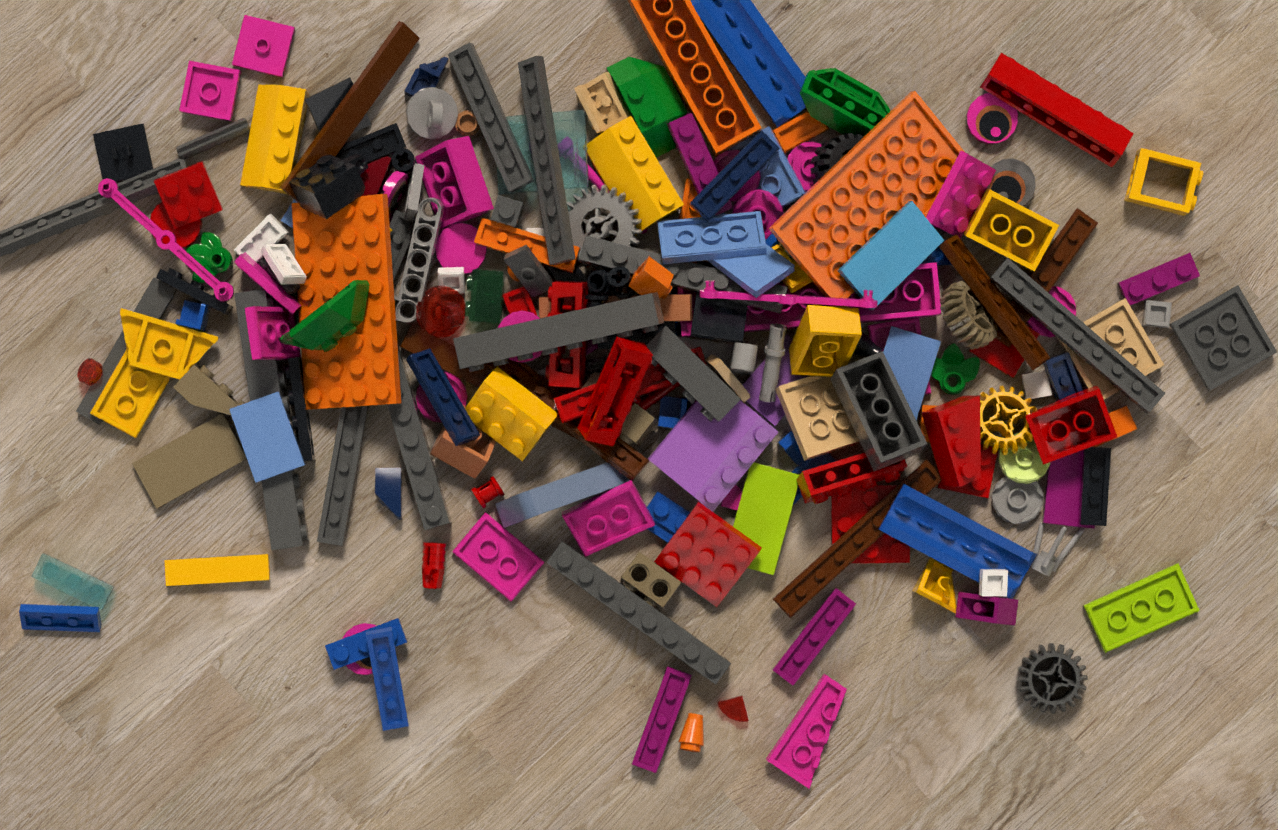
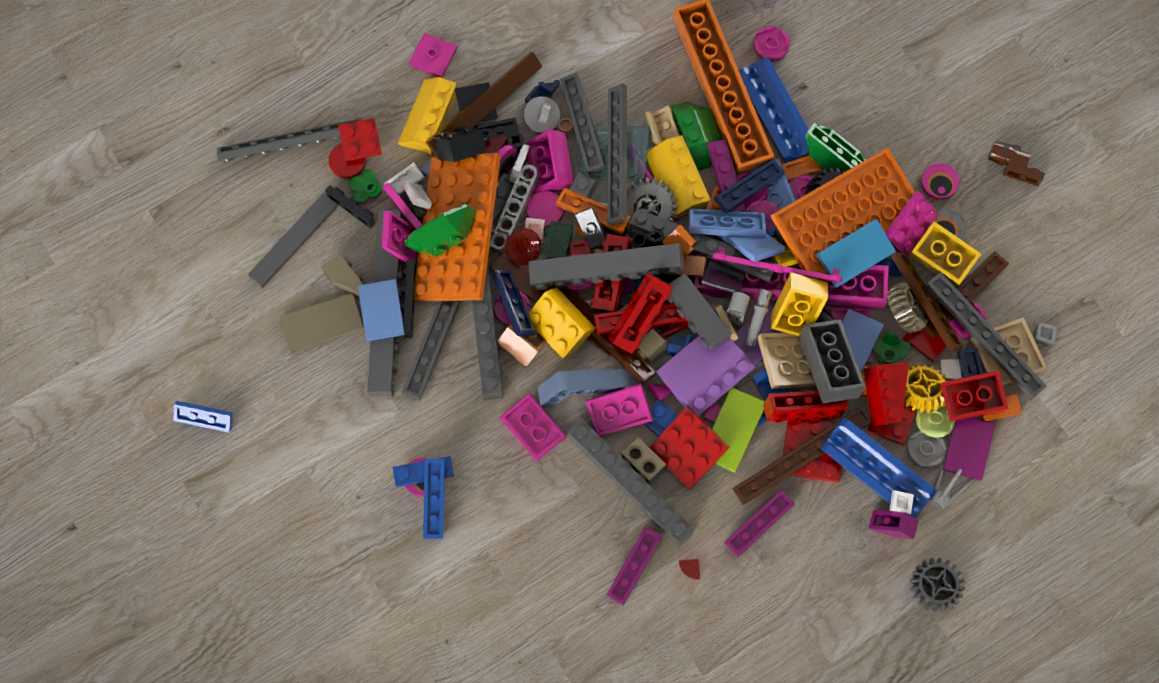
camera: 15 degrees right, 15 degrees down
(72, 581) = (218, 392): clear light blue plate -> none
(89, 372) = (264, 249): clear red tile -> none
(123, 152) = (319, 109): black piece -> none
(129, 397) = (297, 260): yellow tile -> none
(162, 344) = (319, 236): yellow wing -> none
(194, 315) = (346, 223): blue panel -> none
(210, 91) = (389, 77): dark pink plate -> none
(213, 138) = (385, 109): dark grey axle -> none
(217, 570) = (325, 402): yellow tile -> none
(222, 290) = (370, 206): dark pink piece -> none
(389, 489) = (461, 365): dark blue slope -> none
(433, 564) = (484, 423): red hinge -> none
(487, 492) = (533, 378): red bush -> none
(656, 480) = (659, 390): none -> dark pink tile
(692, 733) = (655, 582): orange cone -> none
(803, 740) = (741, 598): dark pink wing -> none
(937, 584) = (857, 502): yellow slope -> none
(1057, 110) = (987, 181): red brick -> none
(1091, 74) = (1016, 163): none -> reddish brown plate
(1095, 486) = (986, 446): black plate -> none
(1137, 176) = (1055, 256): yellow window -> none
(1141, 608) = (1011, 545): lime tile -> none
(1159, 279) = (1050, 310): magenta plate -> none
(1223, 338) = (1093, 358): dark grey plate -> none

